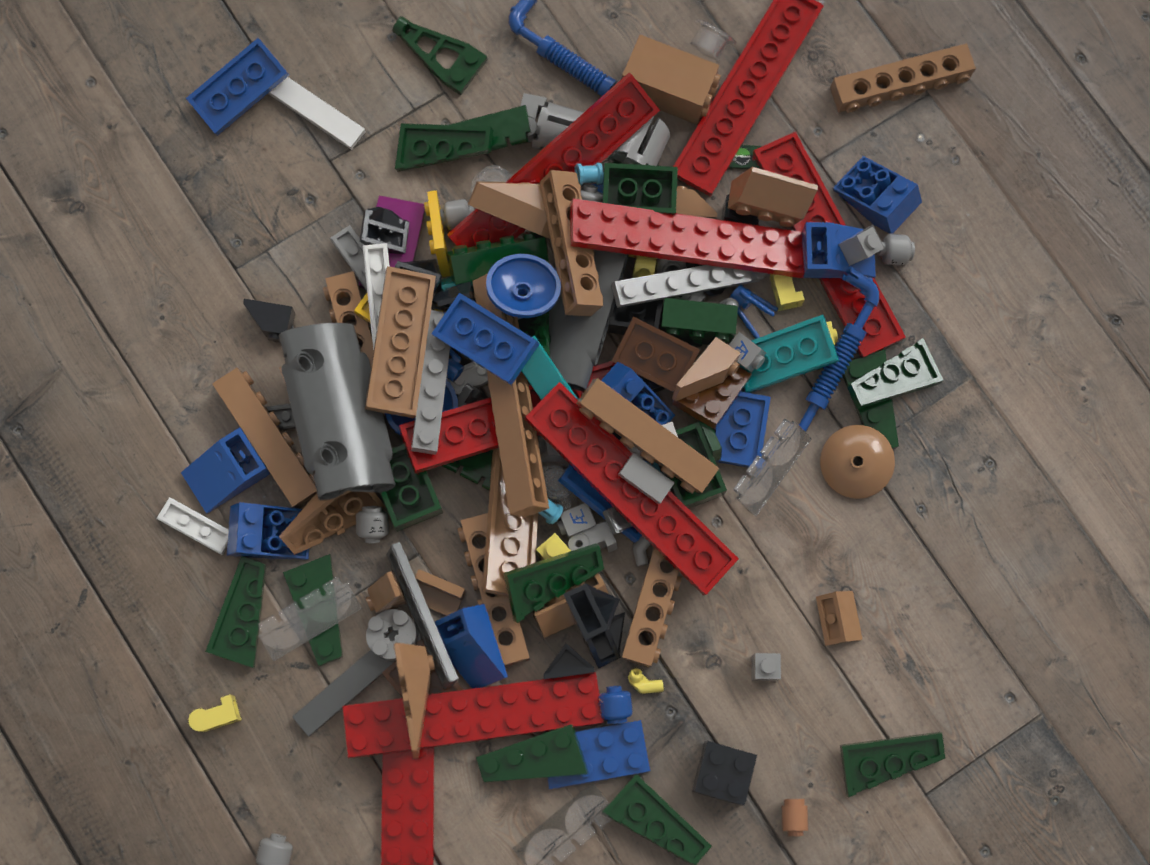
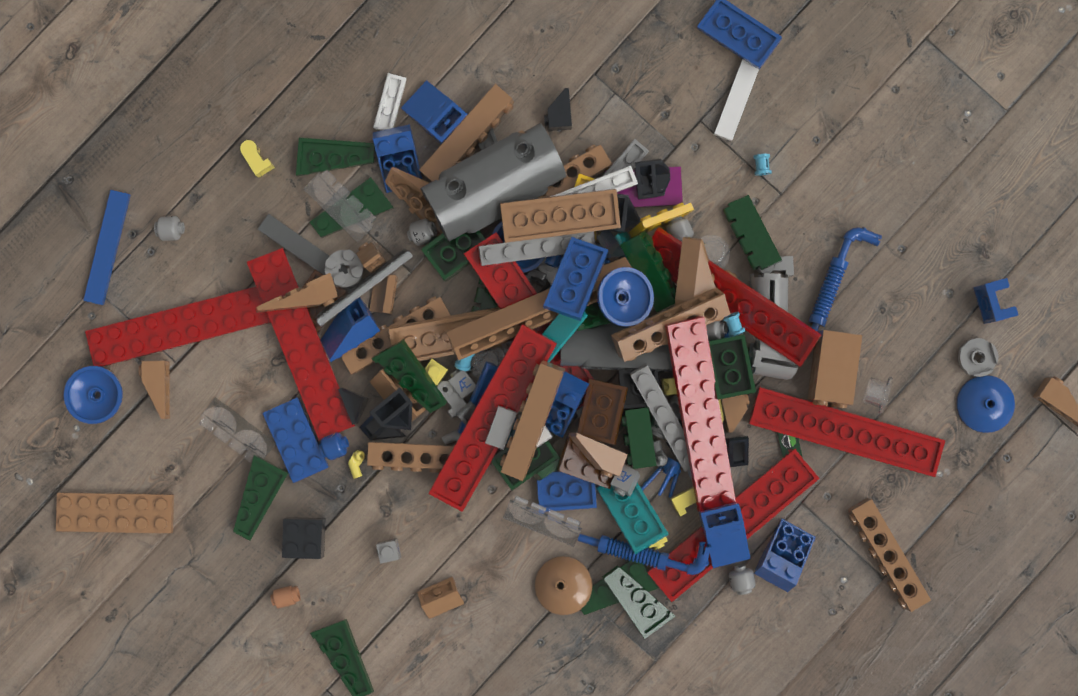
camera: 85 degrees right, 10 degrees up
(404, 101) = (762, 164): none -> medium azure bush
(434, 144) = (732, 197): dark green wing -> none
(461, 71) = (804, 203): dark green plate -> none
(538, 757) = (282, 401): dark green wing -> none
(771, 196) = (752, 471): medium nougat slope -> none
(861, 245) = (733, 552): light grey slope -> none

